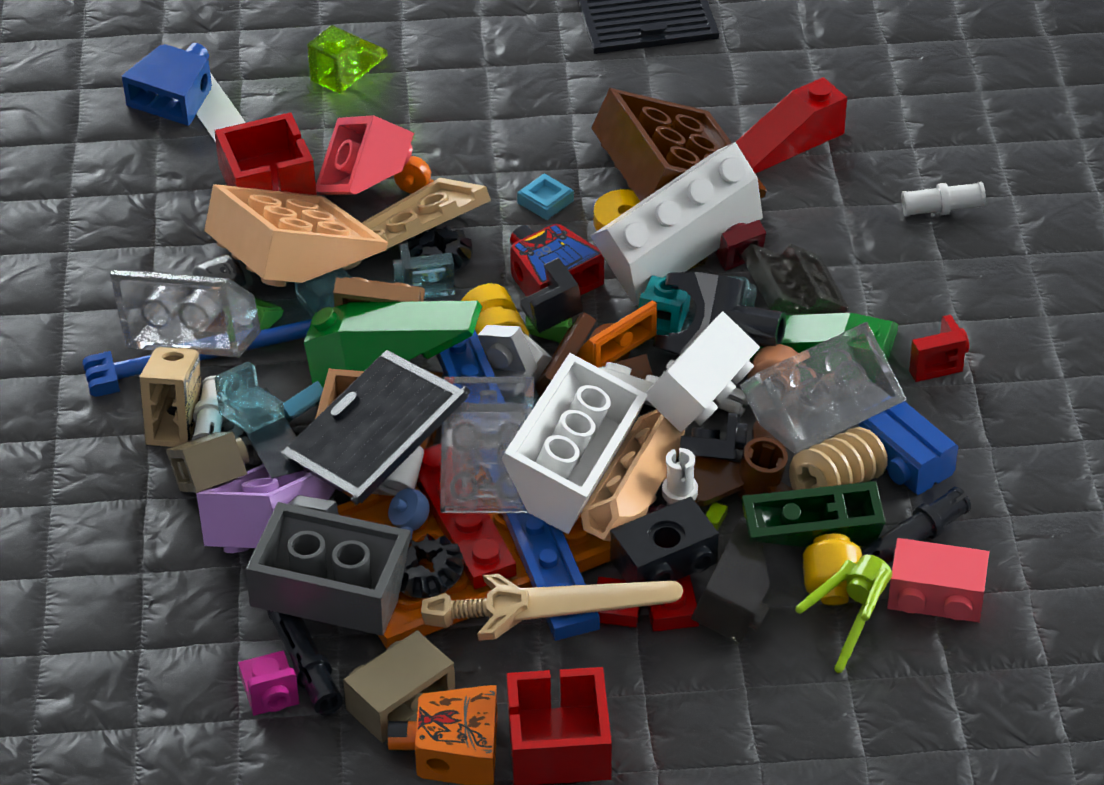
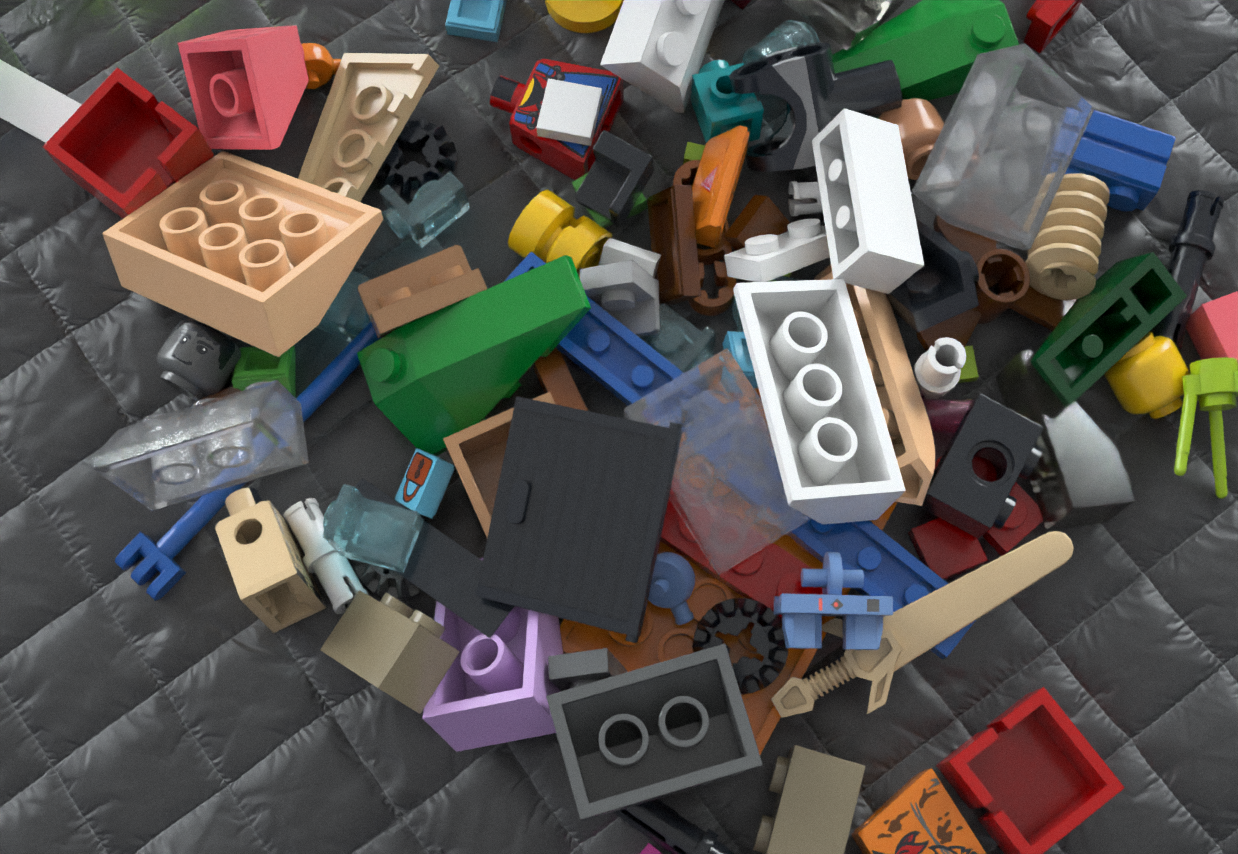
camera: 30 degrees left, 30 degrees up
(497, 548) = (860, 614): none -> medium blue hips
(549, 247) = (569, 112): none -> white tile

